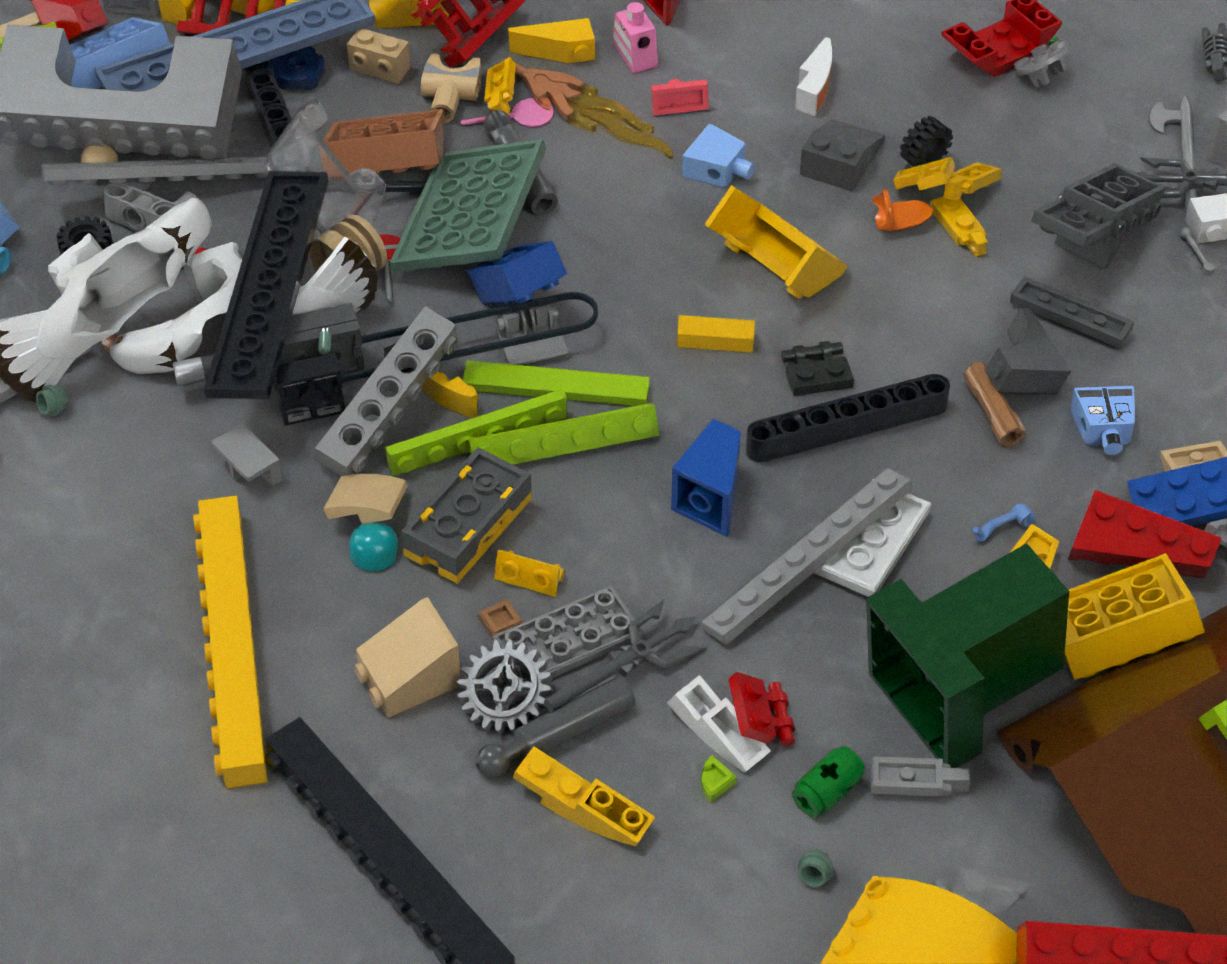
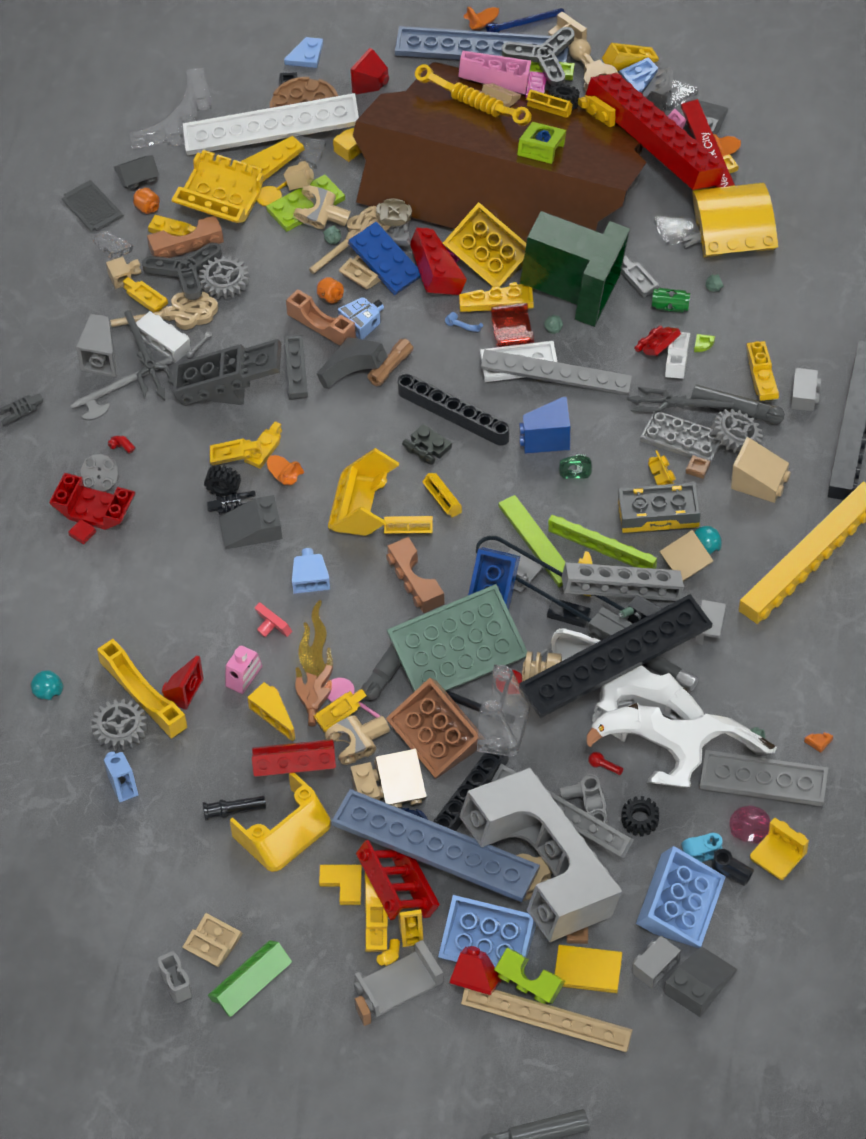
camera: 125 degrees left, 5 degrees up
(360, 82) = (400, 778): none -> slope
(501, 831) = (805, 388): none -> light grey brick
(570, 435) = (579, 510): lime plate -> none
(584, 234) = (425, 592): none -> nougat arch
(628, 470) = (583, 465): none -> clear green piece
(699, 278) = (408, 524): none -> yellow piece
(814, 79) = (198, 568): white slope -> none
(888, 151) = (228, 502): none -> black hinge
(925, 175) = (245, 465): yellow tile -> none
(933, 563) = (511, 325): none -> clear red panel
(973, 19) = (82, 531): none -> red tile
(1084, 106) = (121, 441): none -> red arm
(1165, 362) = (303, 309): none -> nougat arch
(1186, 410) = (330, 290): none -> orange head

